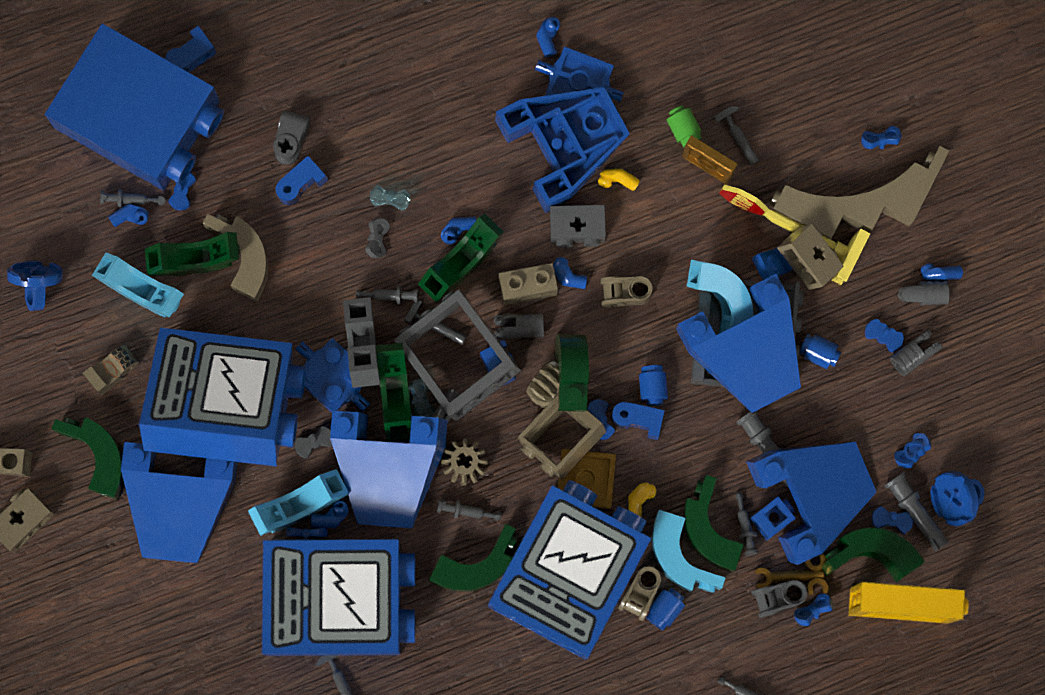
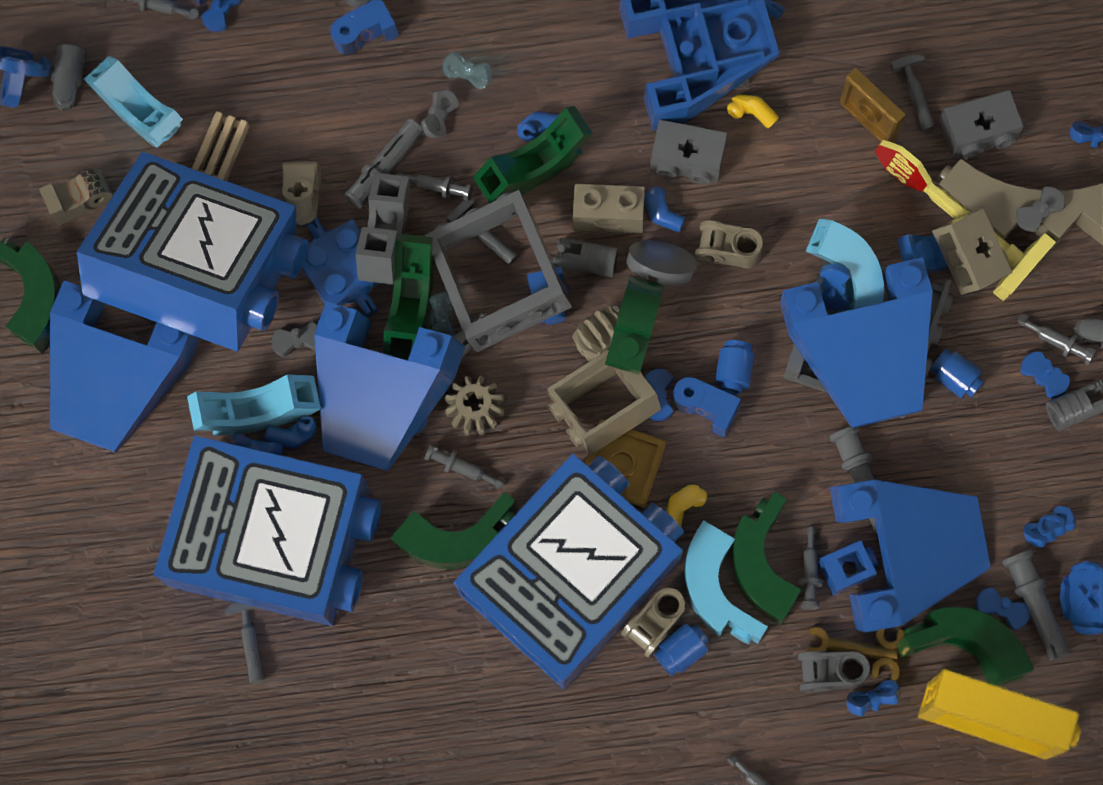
camera: 25 degrees right, 5 degrees down
(75, 273) = (67, 74): none -> dark grey hinge
(130, 213) = (152, 20): blue arm -> none
(192, 258) = (208, 86): dark green arch -> none
(202, 301) = (209, 140): none -> tan tile
(254, 263) = (281, 112): dark tan arch -> none
(287, 323) = (302, 188): none -> dark tan piece
(345, 287) = (384, 162): none -> dark grey pin
(579, 317) = (661, 260): none -> dark grey tile
(683, 124) = (847, 56): bright green brick -> none
(714, 309) = (834, 286): none -> blue piece
(803, 140) = (992, 112): none -> dark grey brick
(848, 219) = (1050, 202): none -> dark grey piece
(888, 306) = (1059, 340): none -> dark grey piece

